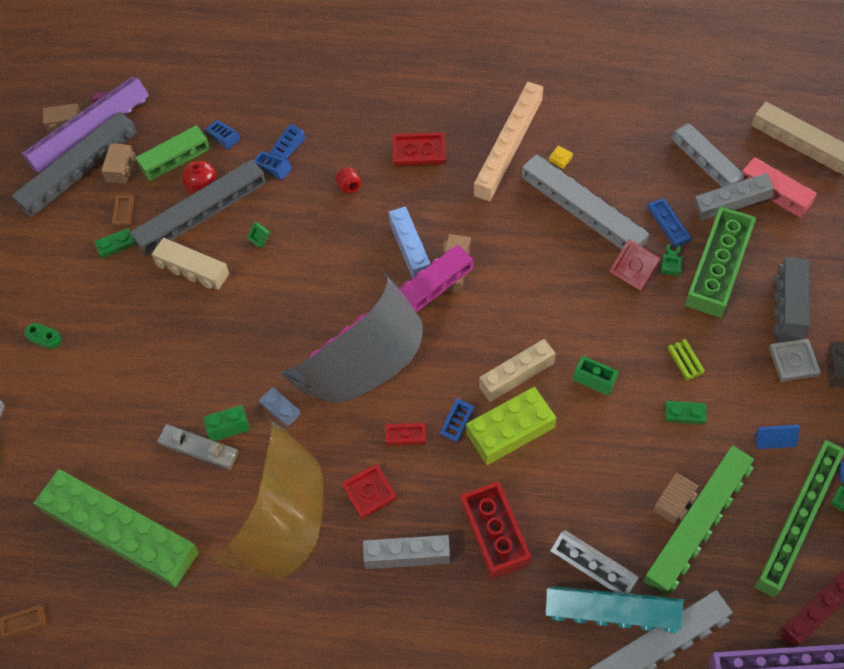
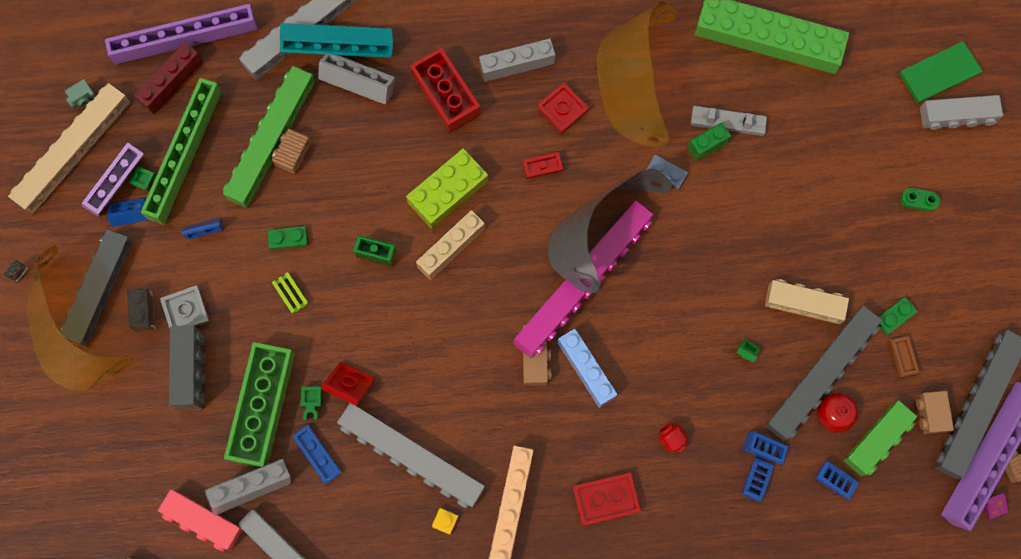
camera: 165 degrees right, 15 degrees up
(463, 405) = (495, 201): blue slope -> none

